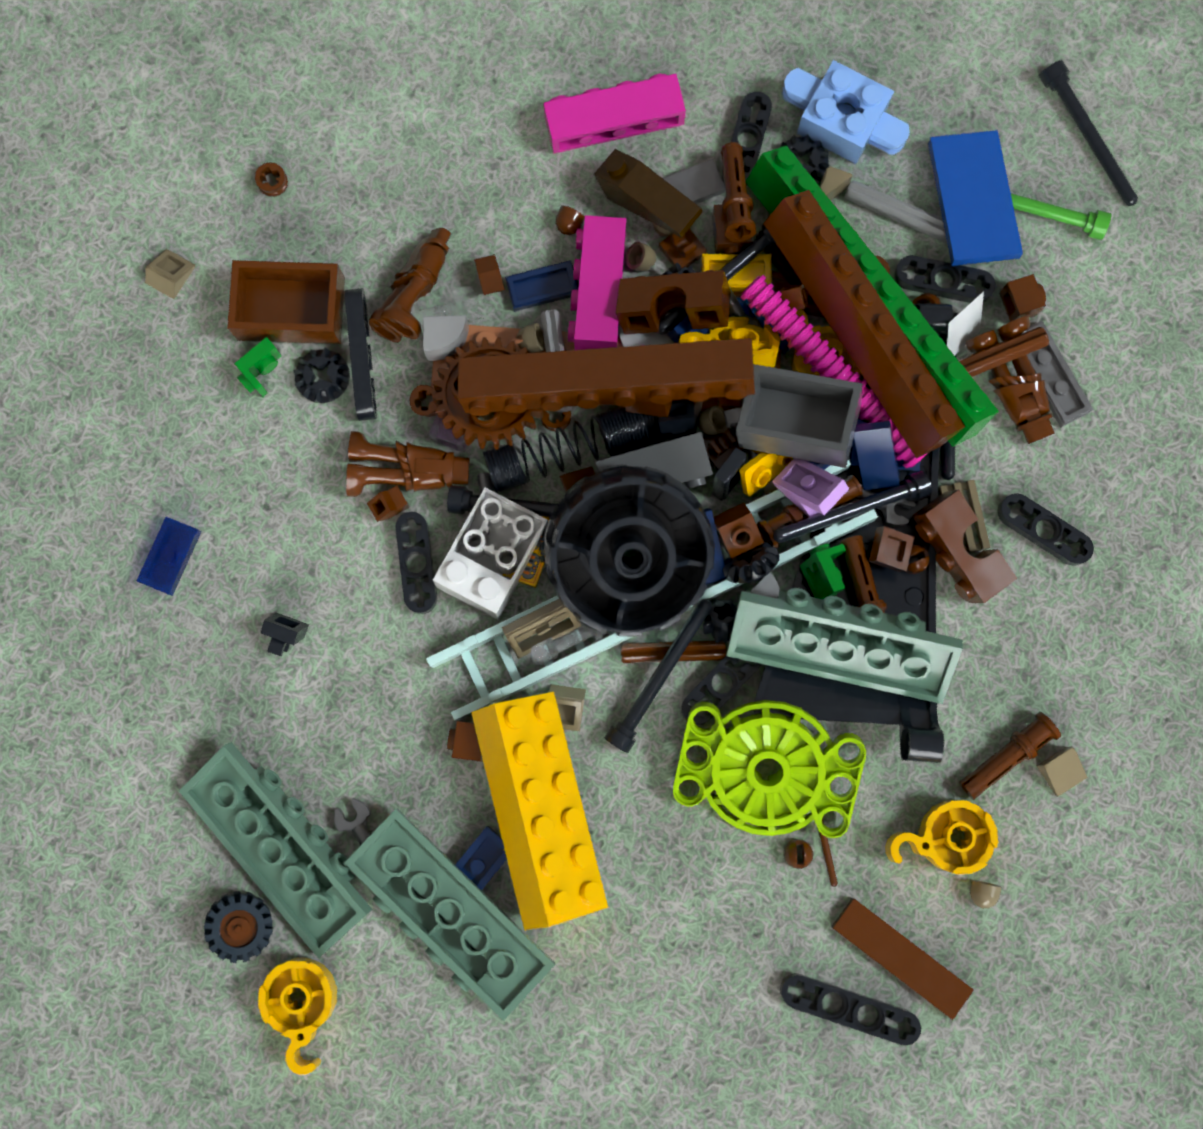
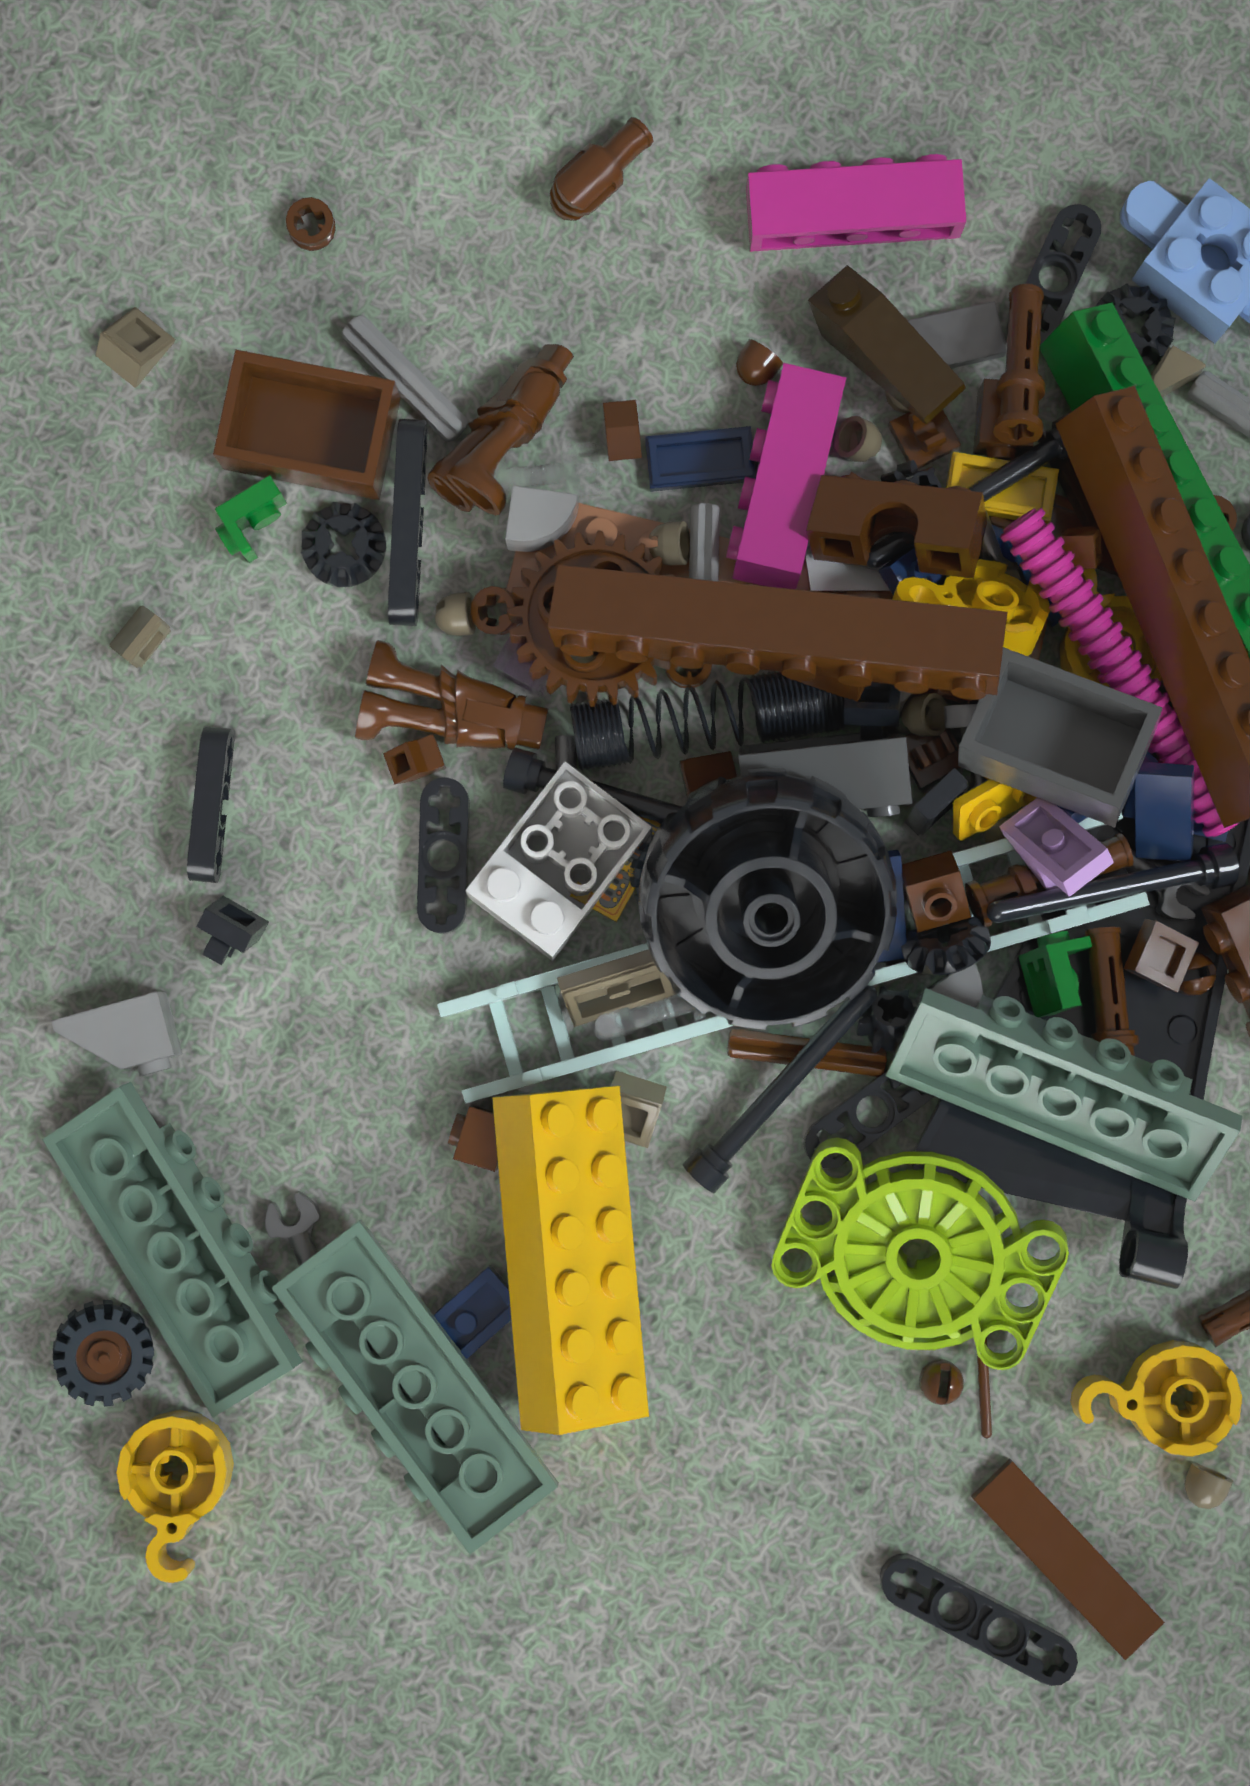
camera: 10 degrees right, 5 degrees up
(169, 556) = (75, 785): clear blue plate -> none
(199, 454) = (140, 636): none -> dark tan slope
(225, 711) = (127, 1033): none -> light grey slope
(258, 544) = (210, 790): none -> black beam
(349, 266) = (411, 383): none -> light grey axle
(399, 407) = (454, 614): none -> dark tan hinge
(448, 118) = (597, 171): none -> reddish brown arm

